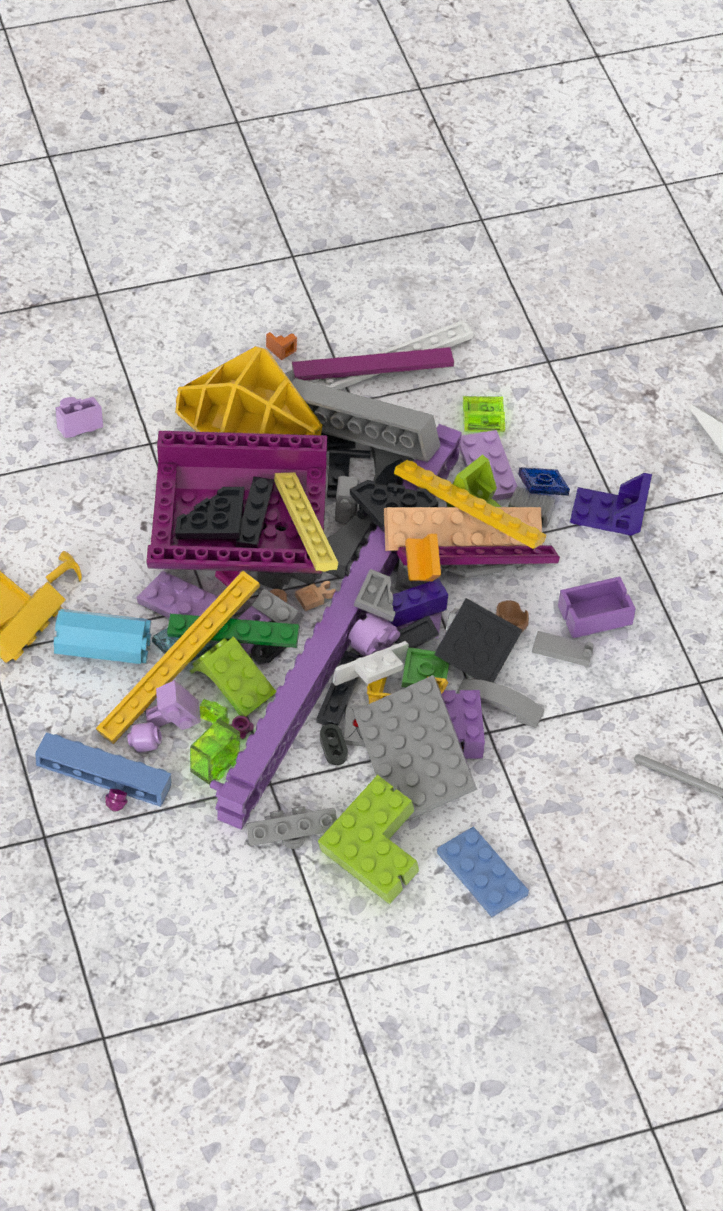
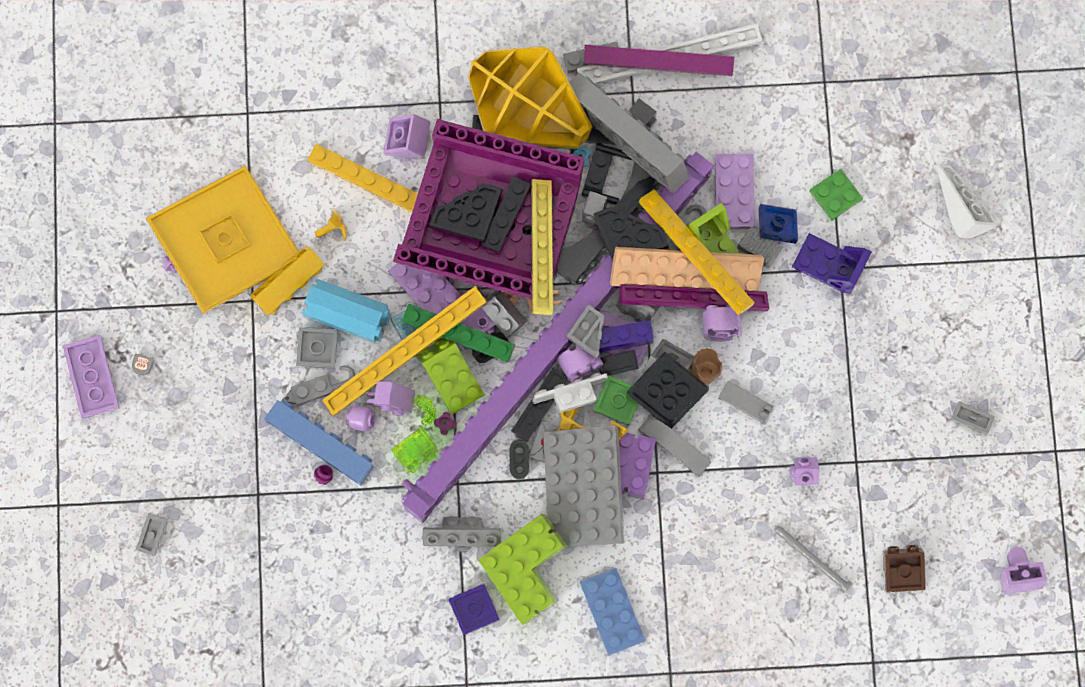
camera: 20 degrees right, 25 degrees up
(76, 681) = (317, 347): none -> light grey plate
(78, 416) = (379, 64): lavender brick -> none
(84, 721) = (316, 388): none -> light grey plate
(86, 521) = (363, 177): none -> yellow plate
(124, 474) = (407, 136): none -> lavender slope
(280, 345) = (583, 17): orange panel -> none
(325, 898) = (473, 609): none -> dark purple plate
(423, 558) = (637, 304): light orange panel -> none
(483, 413) = (746, 133): clear neon green slope -> none
(514, 576) = (721, 323): none -> lavender brick
(594, 451) = (836, 194): none -> bright green plate
(596, 607) = (785, 370): medium lavender piece -> none
(649, 694) = (805, 471): none -> lavender brick

